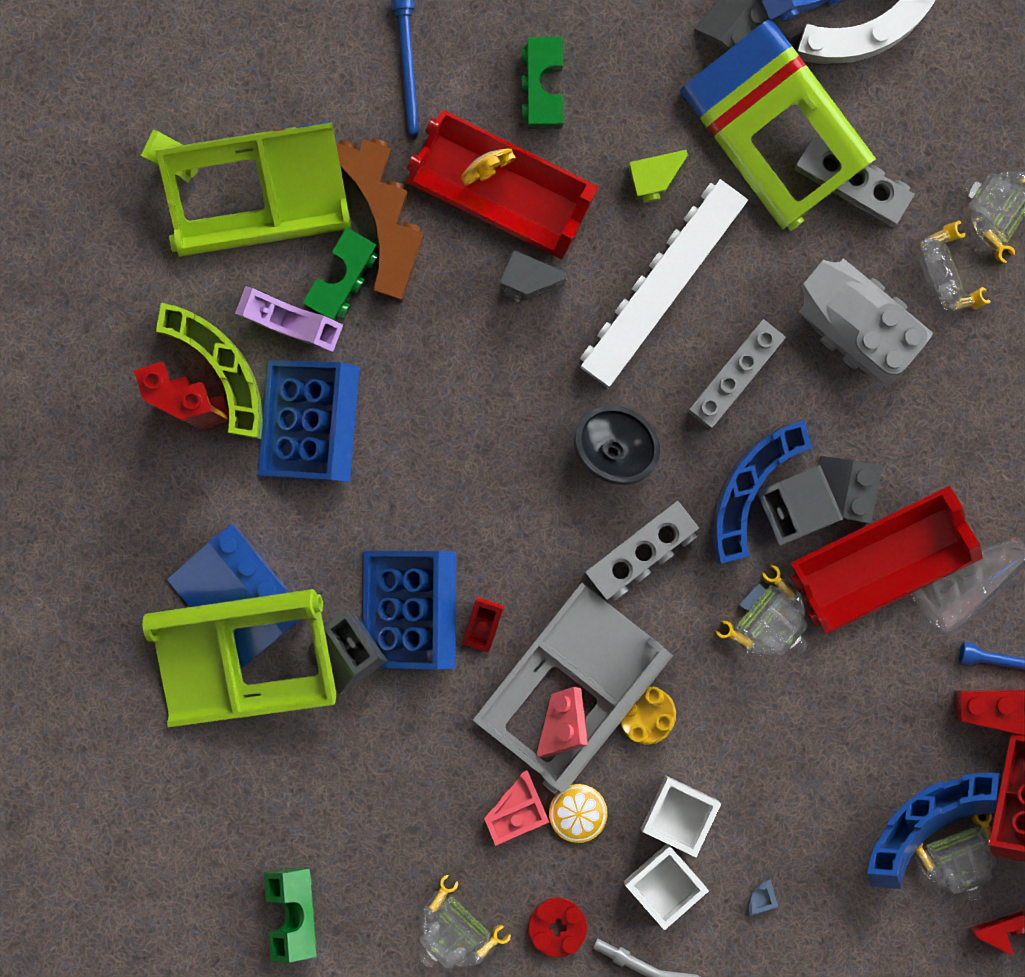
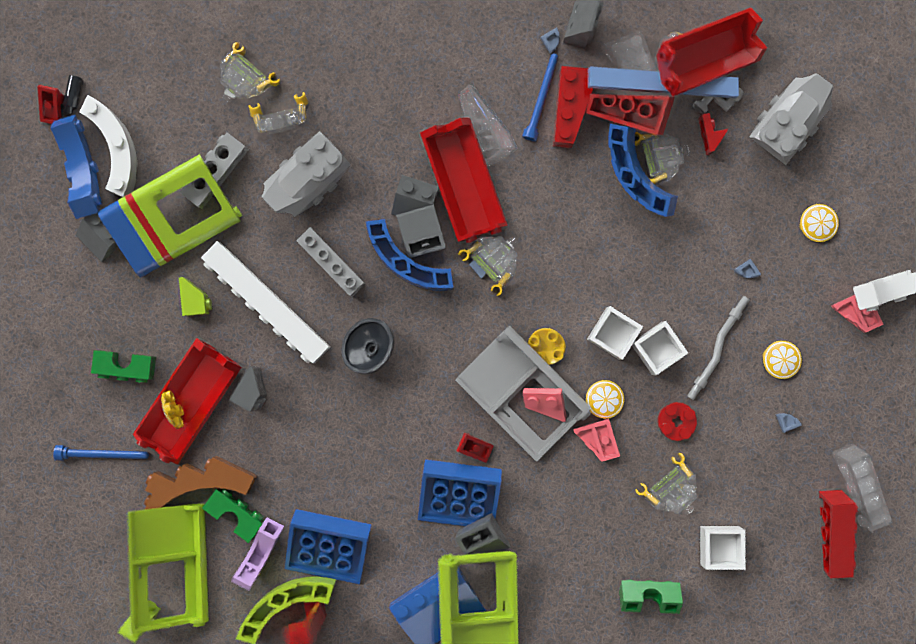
camera: 80 degrees left, 0 degrees up
(673, 517) = (419, 314): light grey brick -> none
(762, 898) = (673, 286): sand blue tile -> none

